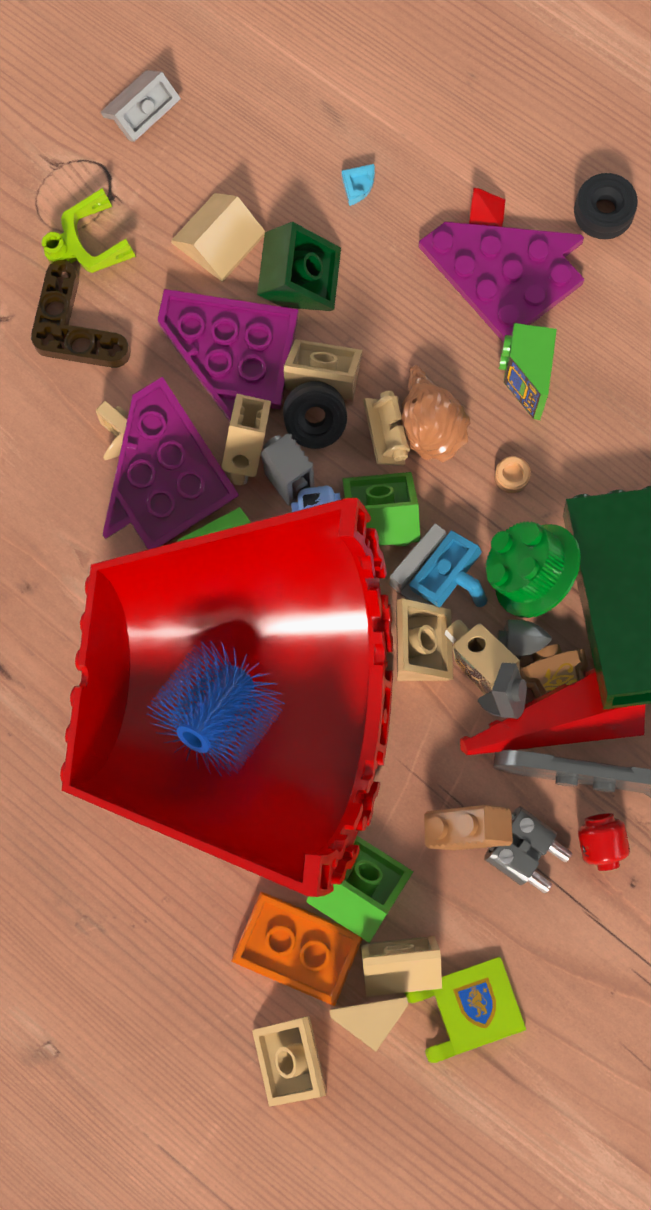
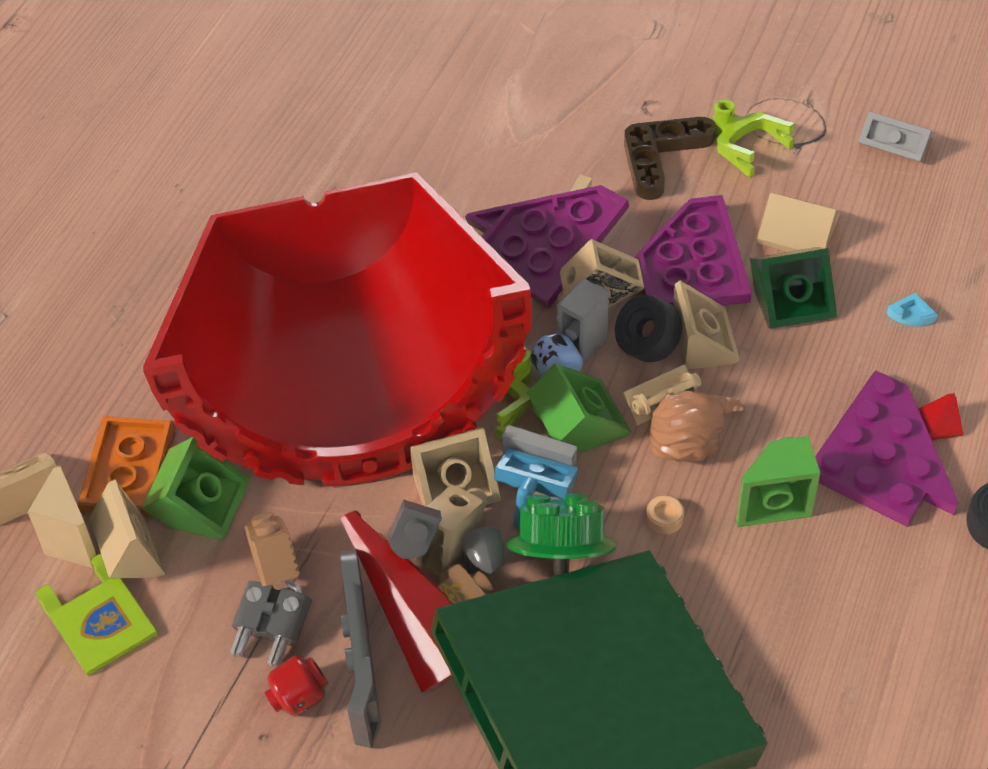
camera: 70 degrees right, 25 degrees down
(215, 708) = (325, 311): blue piece -> none

